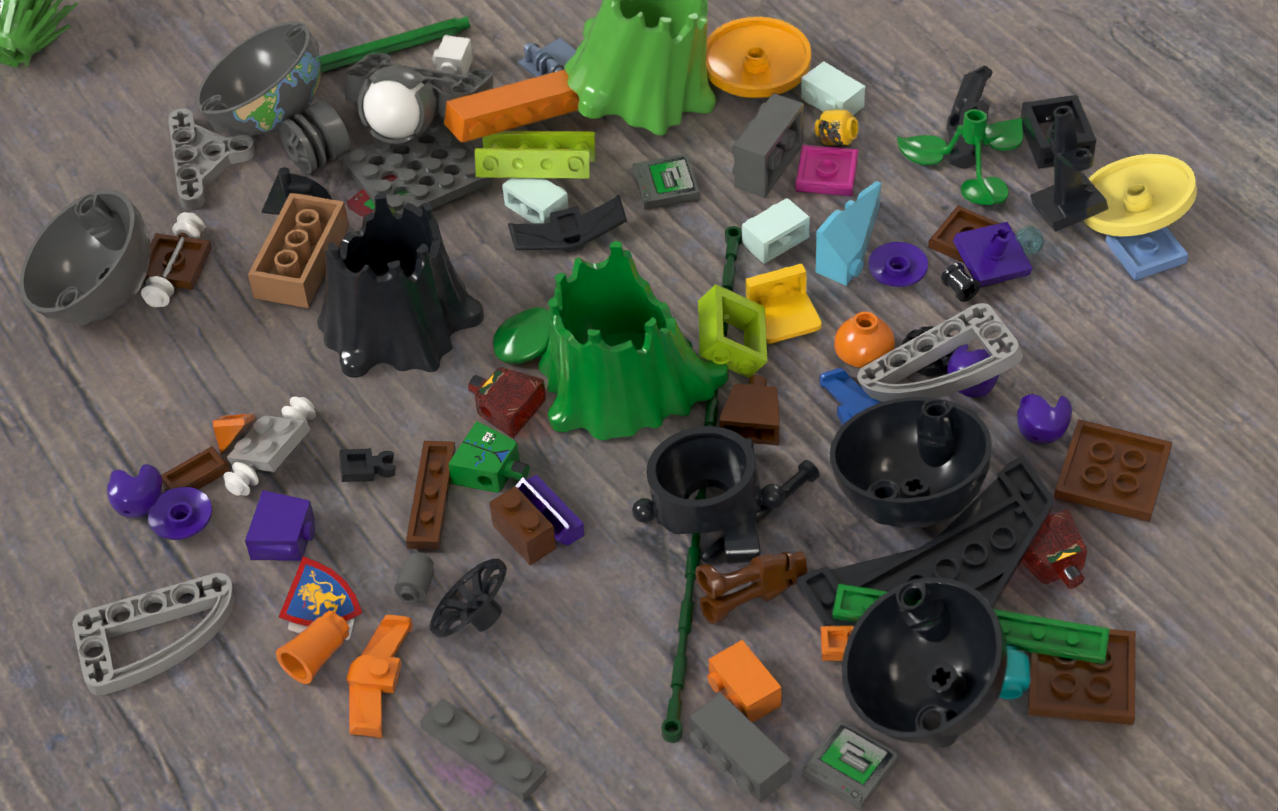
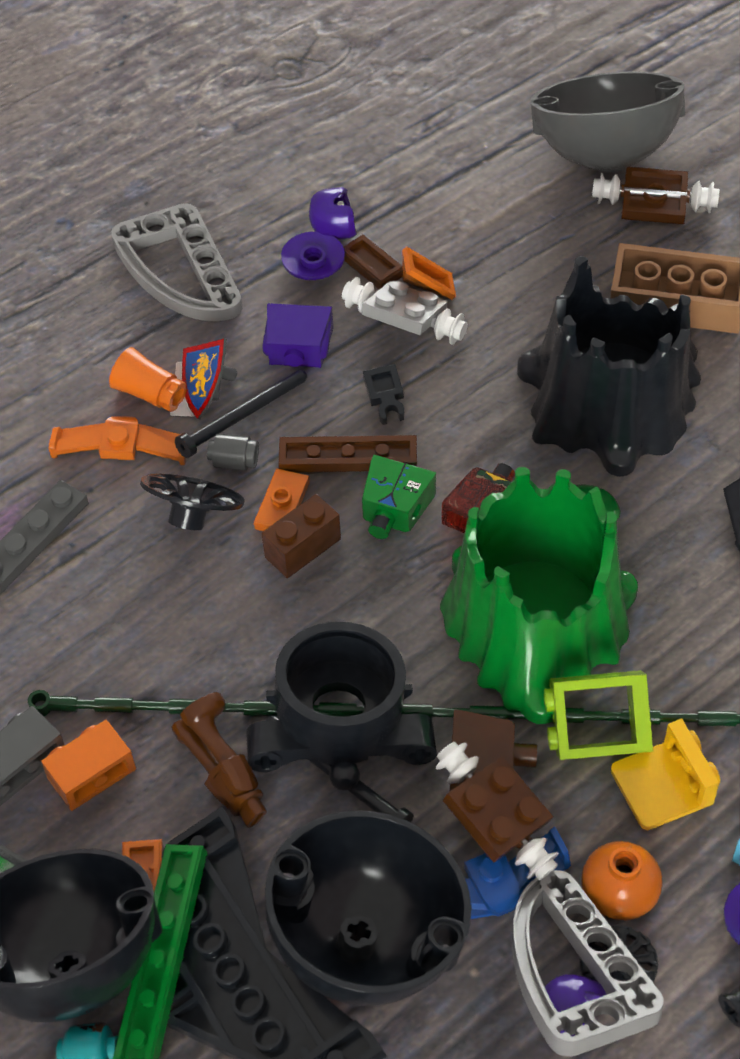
camera: 85 degrees right, 5 degrees up
(406, 606) = (188, 444): none -> black bar
(472, 546) = (282, 496): none -> orange plate
(565, 523) = (329, 561): dark purple piece -> none
(814, 393) = (497, 809): none -> reddish brown plate

